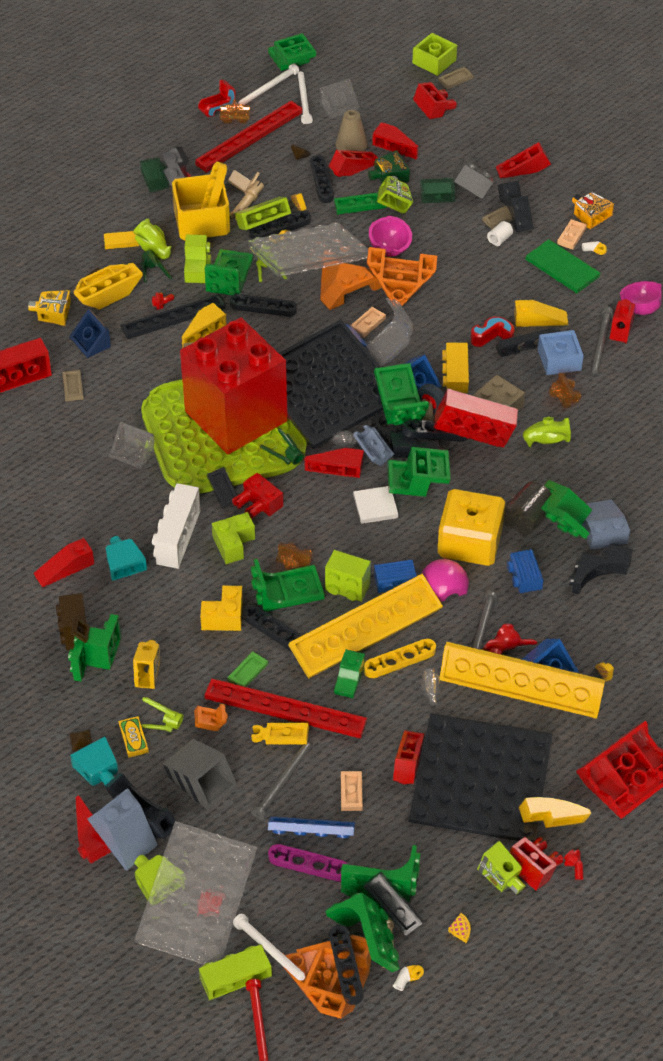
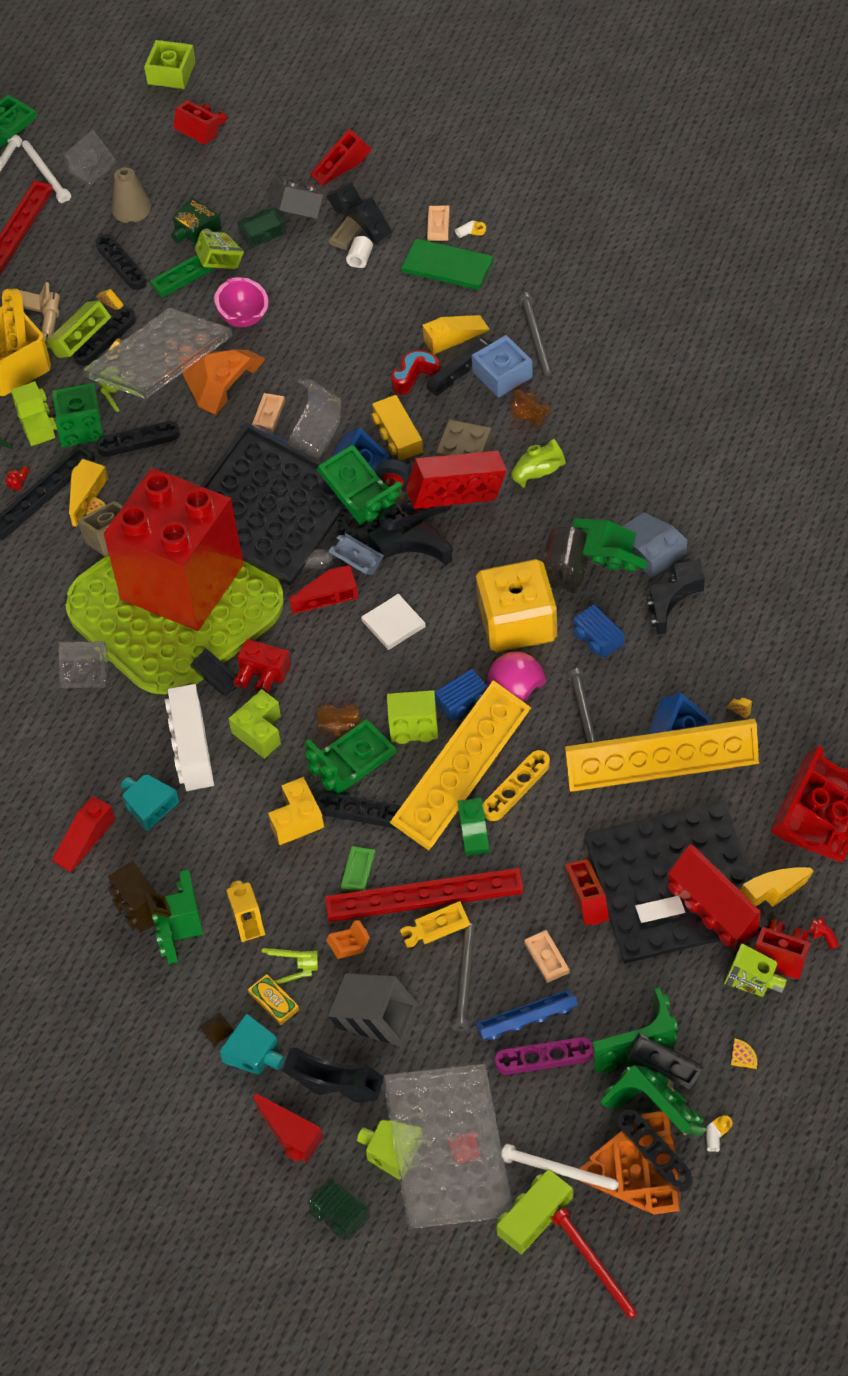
camera: 20 degrees left, 5 degrees up
(92, 905) = (338, 1209): none -> clear green brick
(124, 828) = (328, 1107): sand blue slope -> none
(293, 453) = (274, 600): dark green plant -> none
(299, 153) = (78, 240): dark brown slope -> none
(351, 162) = (146, 229): red slope -> none
(393, 139) = (181, 185): red slope -> none
(400, 277) = (279, 344): orange wedge -> none
(416, 473) = (424, 565): green bracket -> none
(431, 685) = (566, 802): clear plant -> none
(455, 78) = (207, 84): dark tan tile -> none
(456, 792) = (660, 909): none -> white sticker
(498, 800) = (714, 898): none -> red slope
(507, 639) = (619, 717): red animal -> none
(592, 209) = (445, 185): light orange torso -> none
(624, 313) = (549, 295): red torso -> none
(645, 295) = (556, 268): dark pink cylinder -> none

